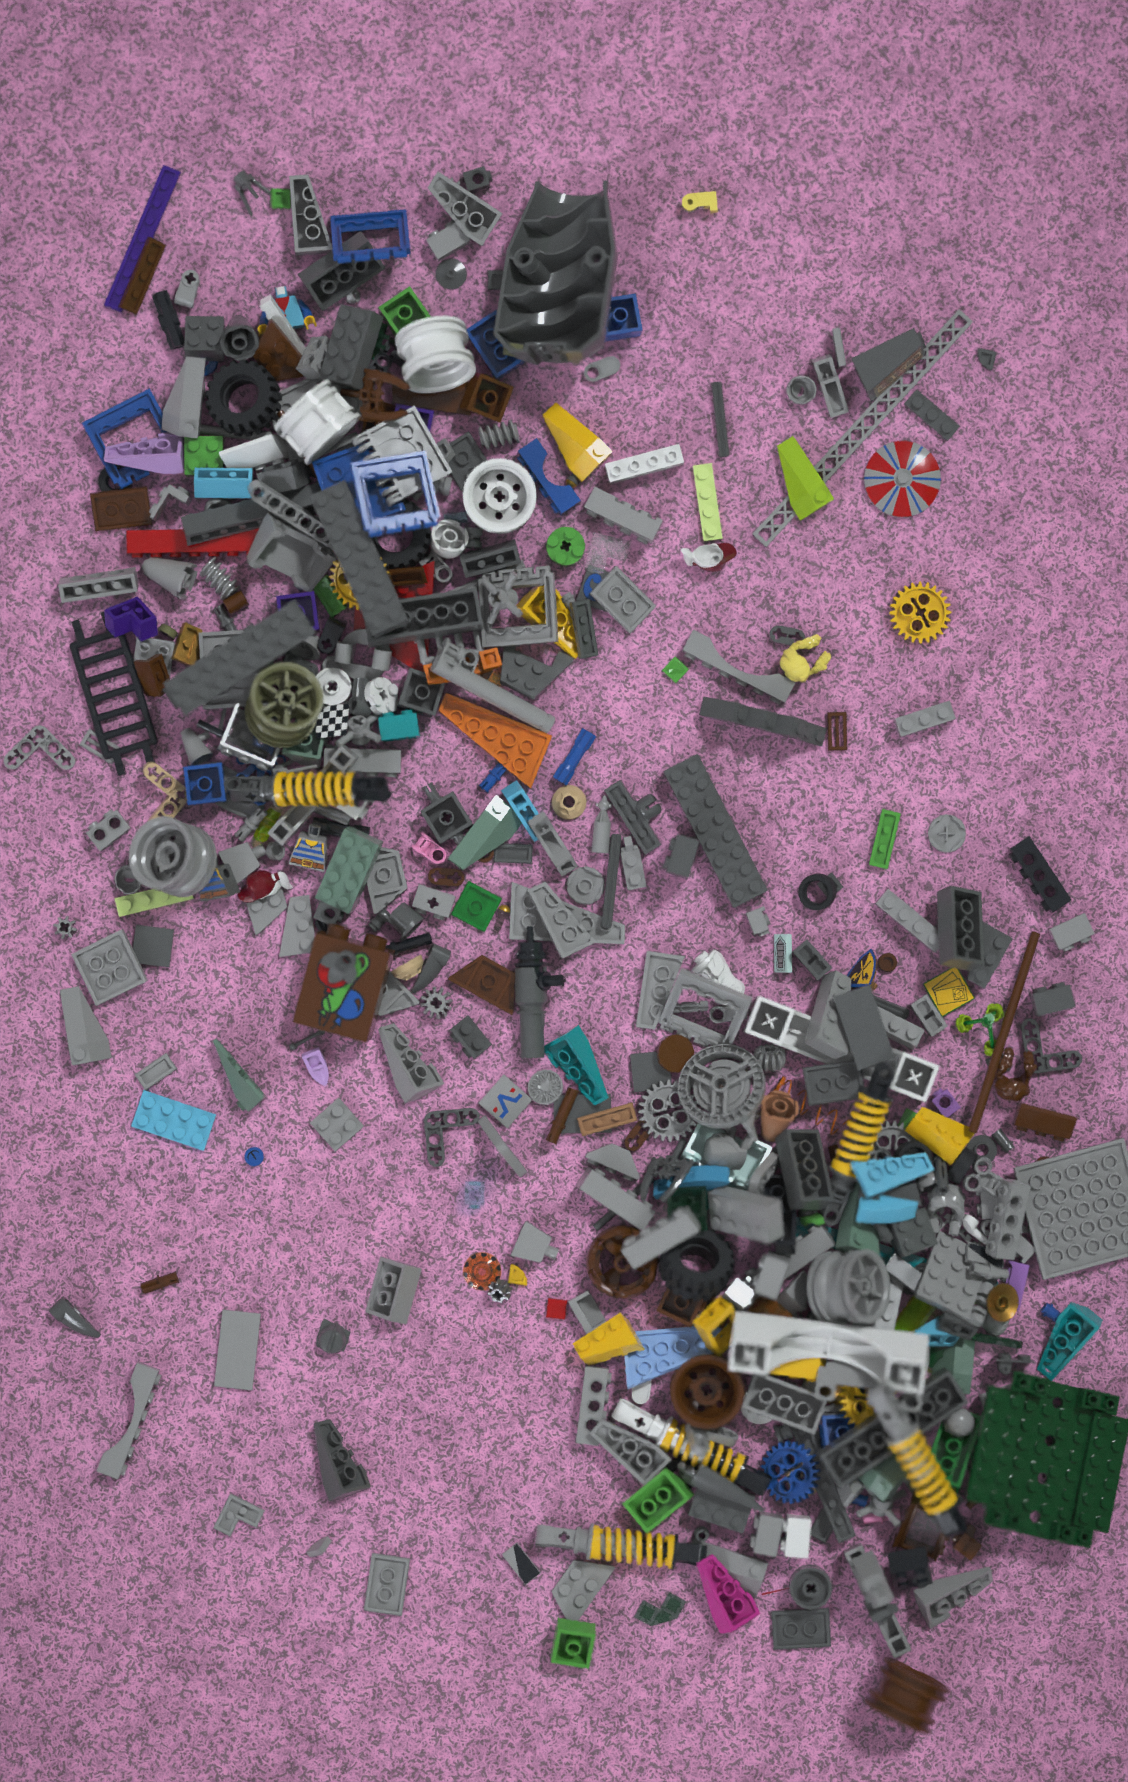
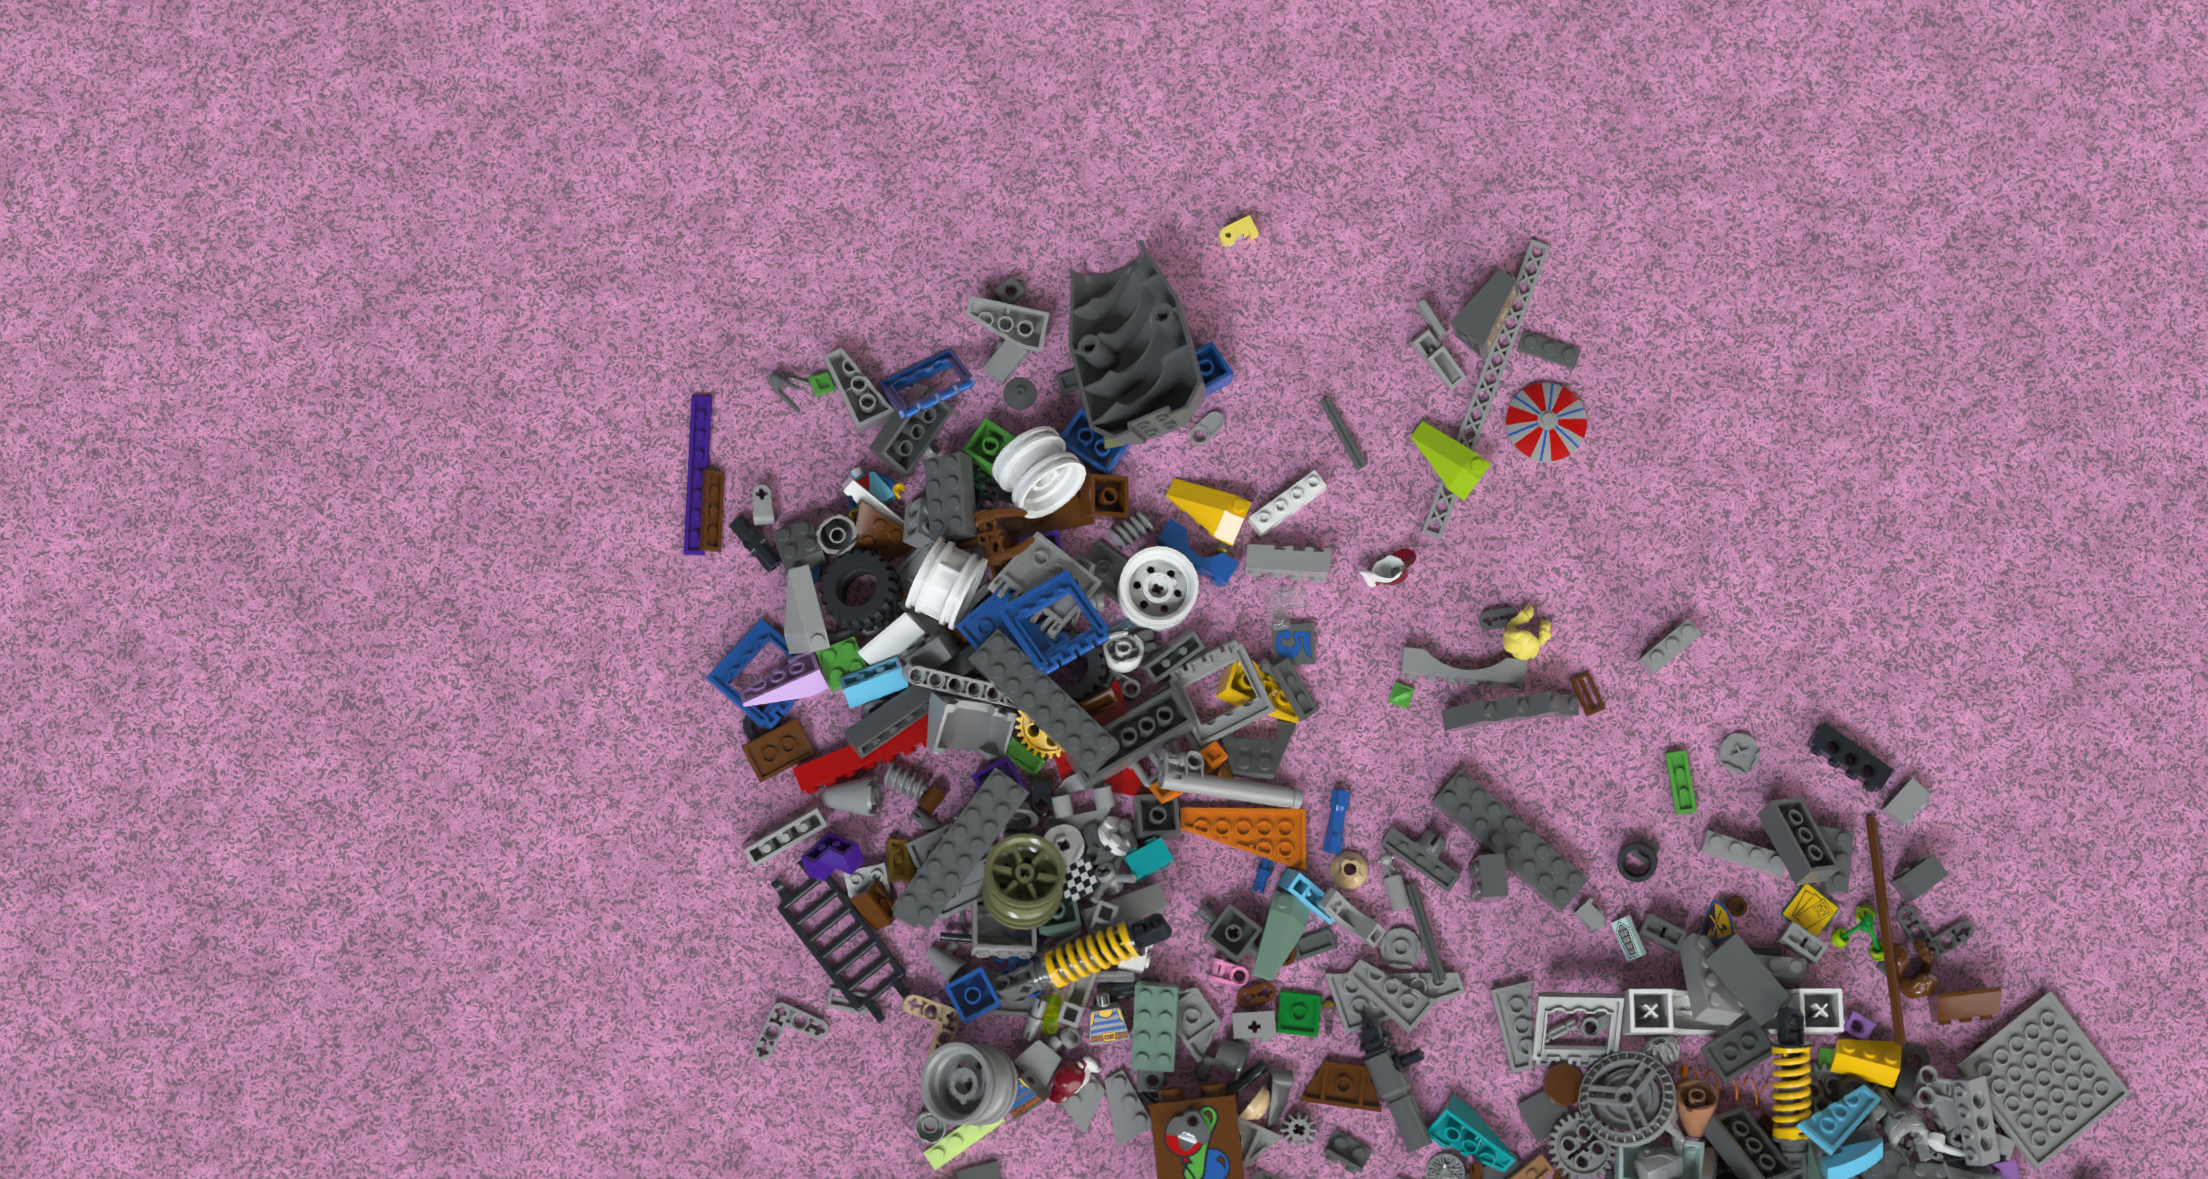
camera: 30 degrees left, 10 degrees down
(111, 834) = (895, 1086): light grey brick -> none
(166, 494) = (830, 711): light grey bracket -> none
(168, 631) = (873, 855): olive tile -> none
(502, 598) = (1202, 687): light grey bar -> none
(569, 536) = (1242, 603): bright green brick -> none
(622, 599) = (1320, 645): light grey tile -> none
(632, 865) = (1439, 908): light grey hinge -> none
(707, 502) = (1364, 518): yellowish green plate -> none
(715, 968) = (1566, 979): white animal -> none
(794, 386) = (1417, 368): light grey hair -> none
(935, 603) = (1630, 530): yellow gear -> none
(986, 358) = (1578, 276): dark grey tile -> none
(1002, 1140) = (1930, 1042): dark grey pin -> none

